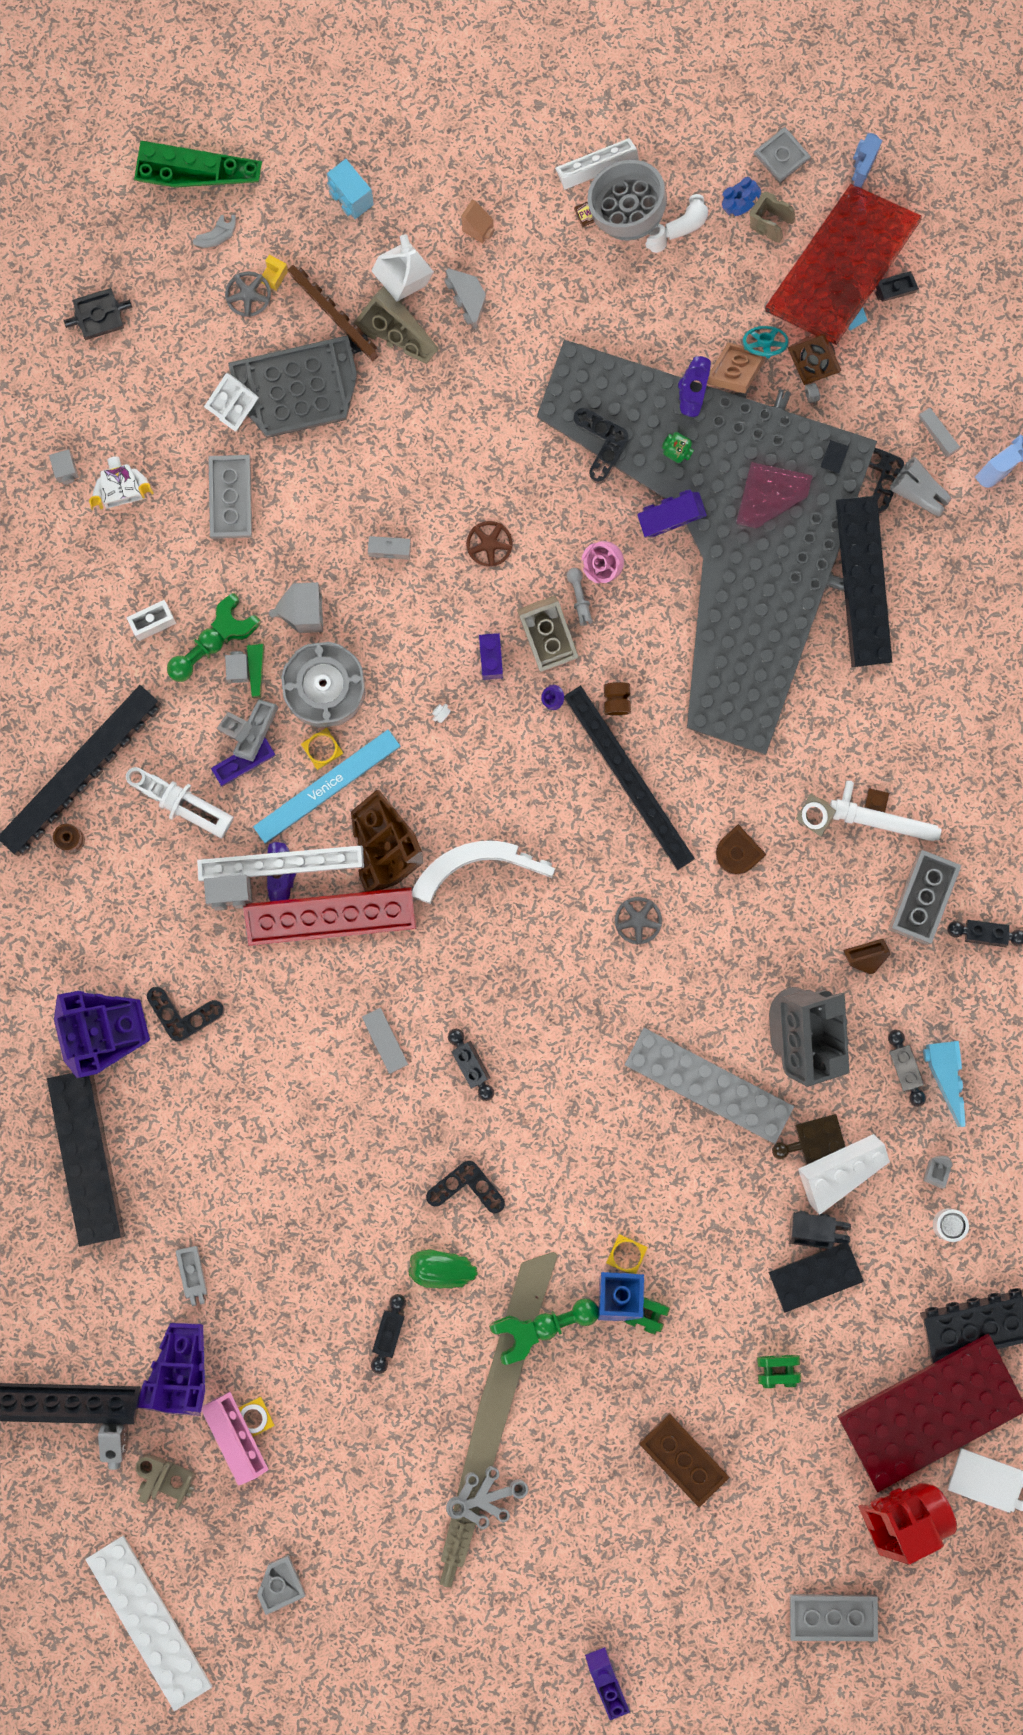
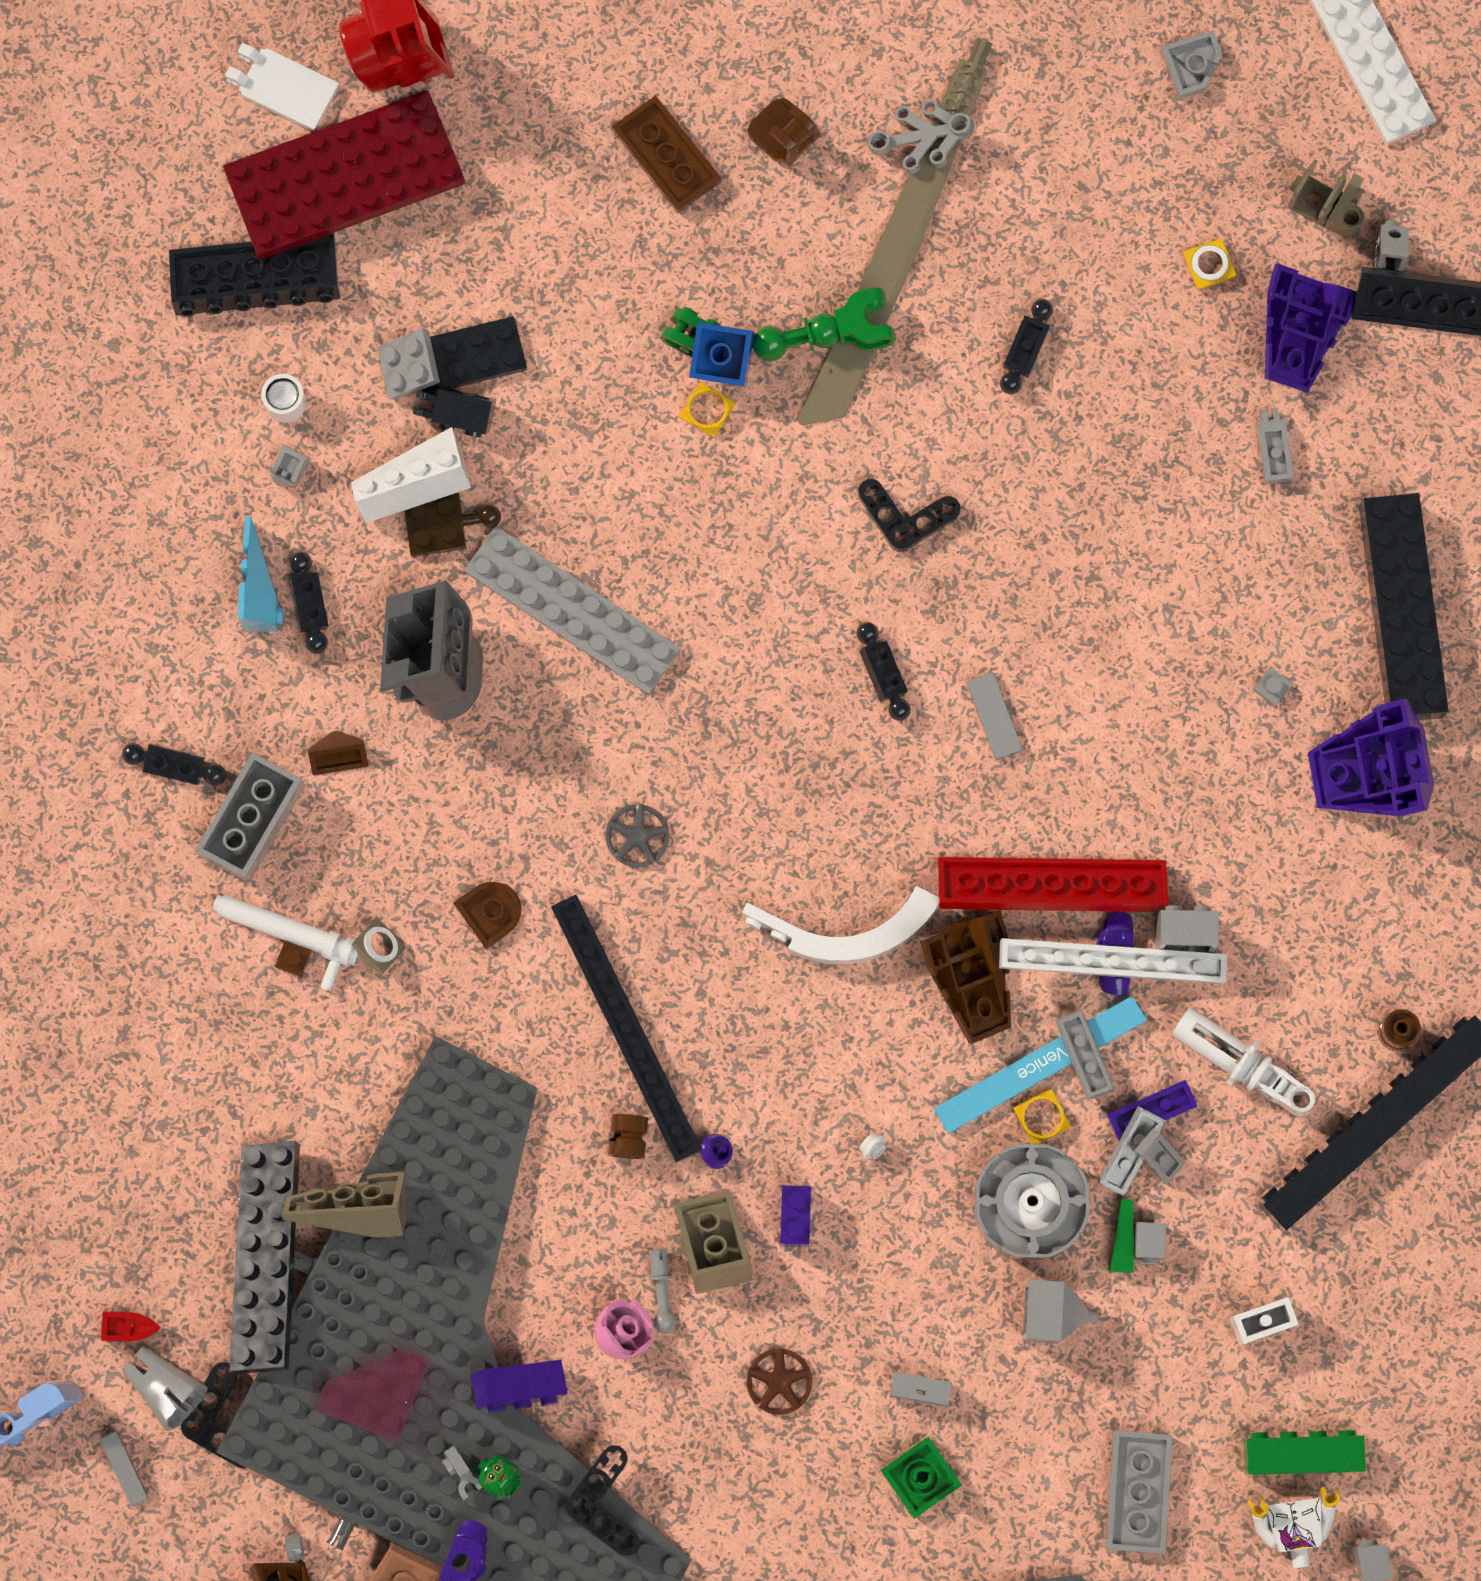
camera: 175 degrees left, 5 degrees down
(116, 534) = (1304, 1454): none -> green brick
(179, 1087) = (1272, 687): none -> light grey plate
(184, 1022) = (1260, 769): black beam -> none
(212, 639) = (1181, 1285): green piece -> none
(234, 1439) = (1235, 239): bright pink brick -> none
(295, 795) = (1084, 1055): none -> light grey tile
(383, 489) = (921, 1477): none -> green plate
(441, 1269) = (951, 417): green hair -> none
(595, 1489) = (783, 131): none -> reddish brown piece
(708, 451) = (455, 1465): none -> light grey plate
(770, 1379) = (521, 235): green brick -> none
(799, 620) = (364, 1208): none -> dark tan wedge
(834, 456) = (280, 1434): black piece -> none
(859, 1262) = (408, 364): none -> light grey plate
(953, 527) = (126, 1327): none -> red plate

